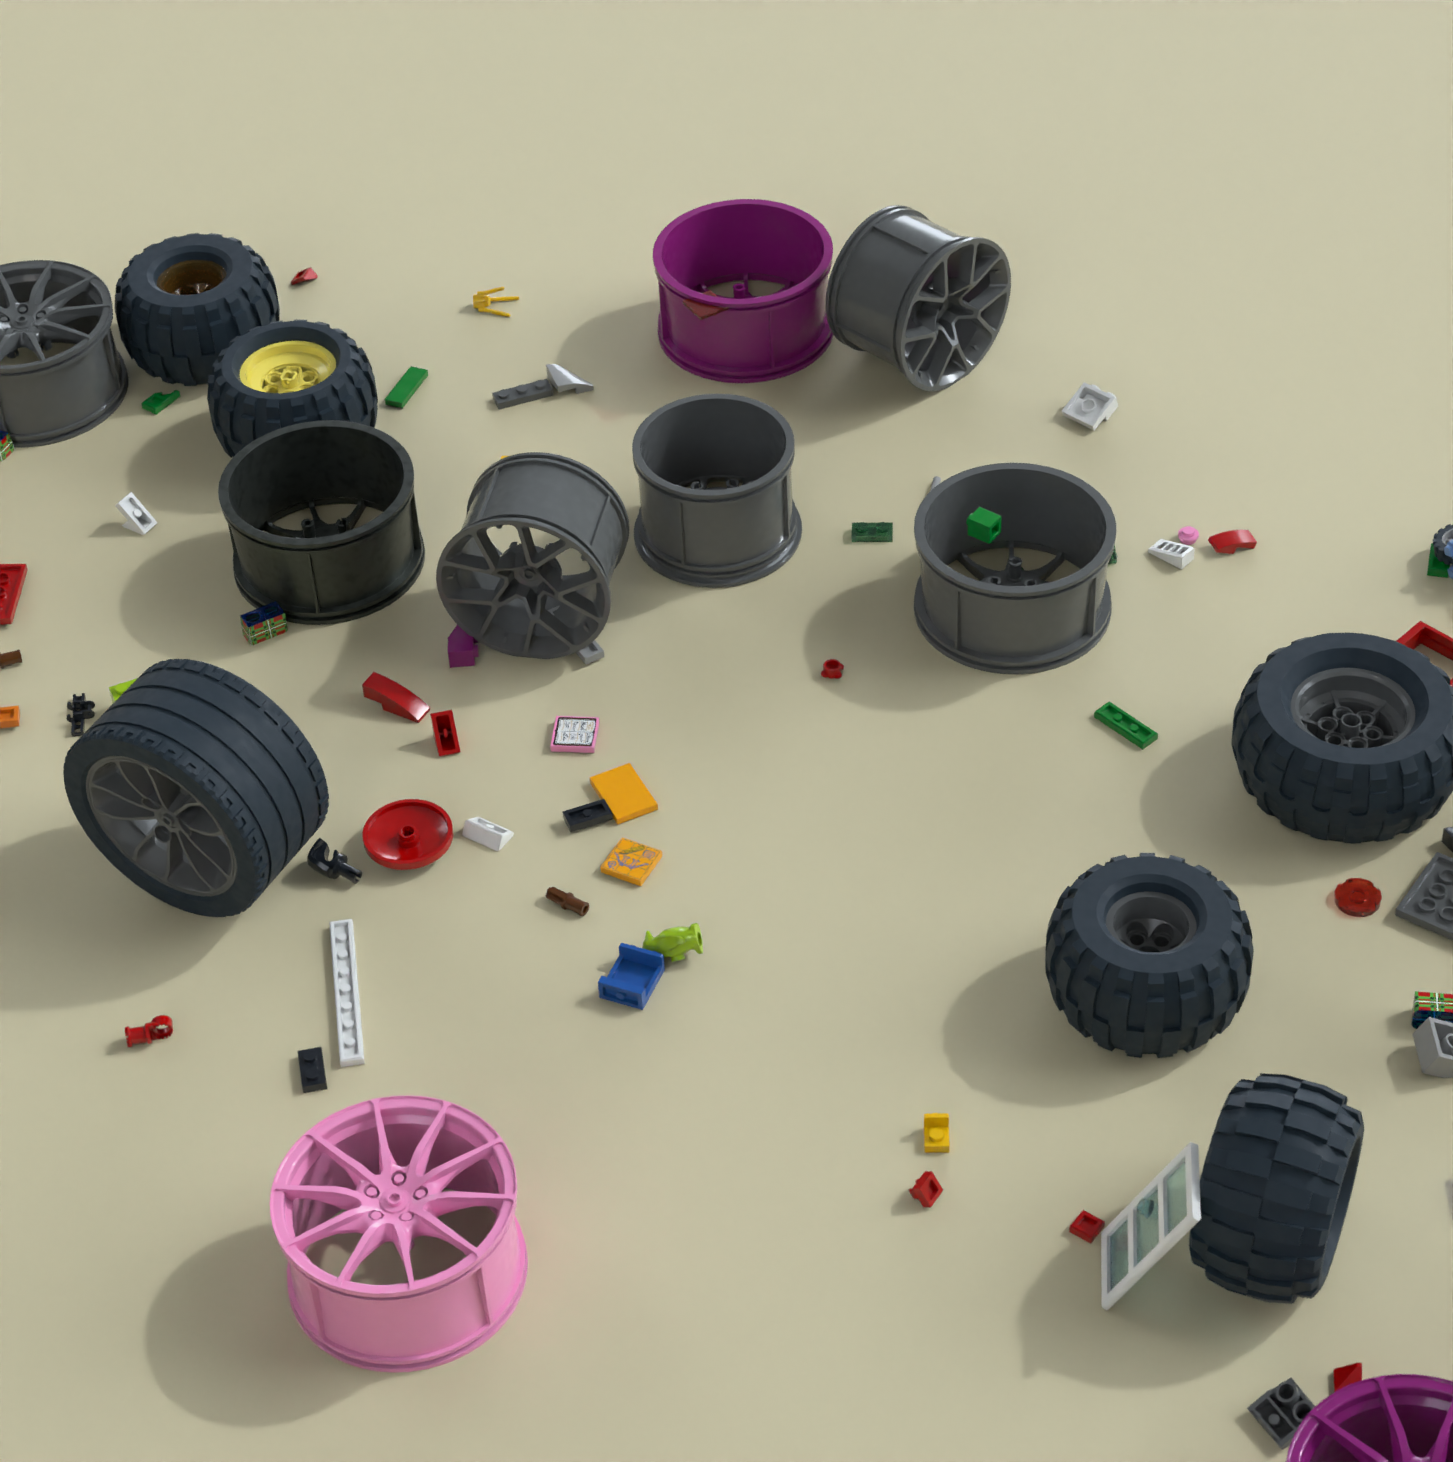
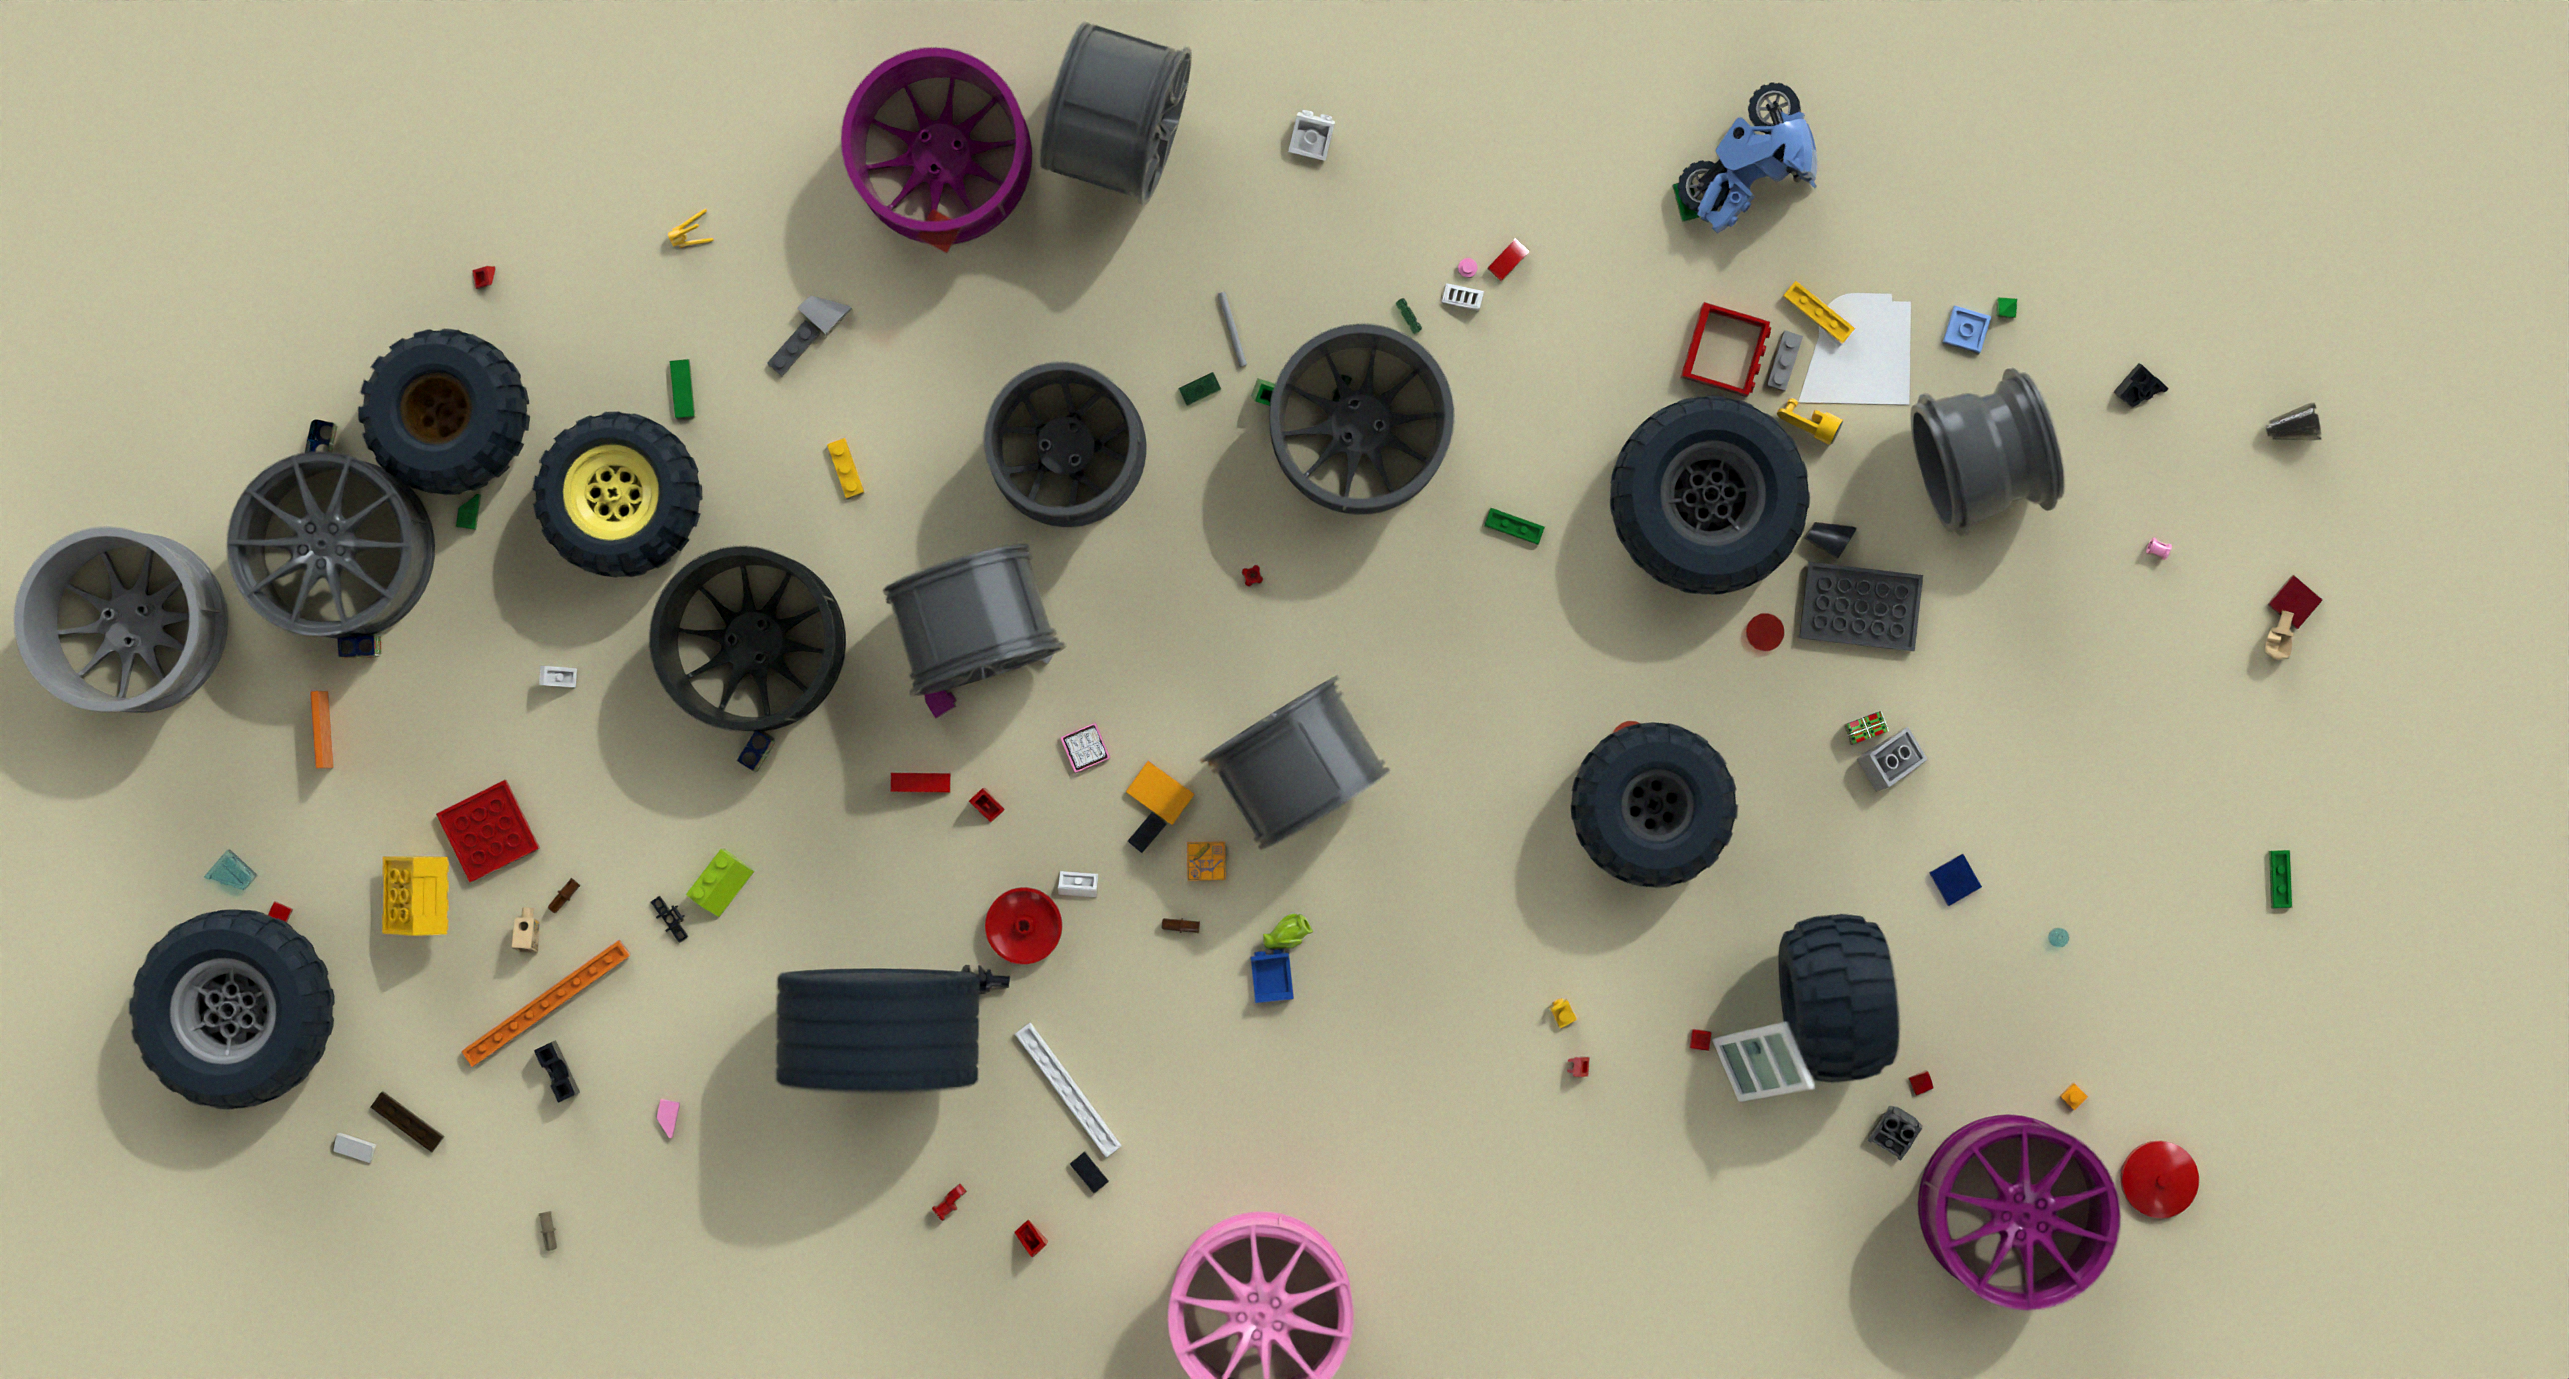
camera: 30 degrees left, 45 degrees up
(205, 1103) = (1031, 1238): none -> red slope
(770, 712) = (1296, 764): none -> dark grey wheel
(984, 525) = (1339, 436): green brick -> none

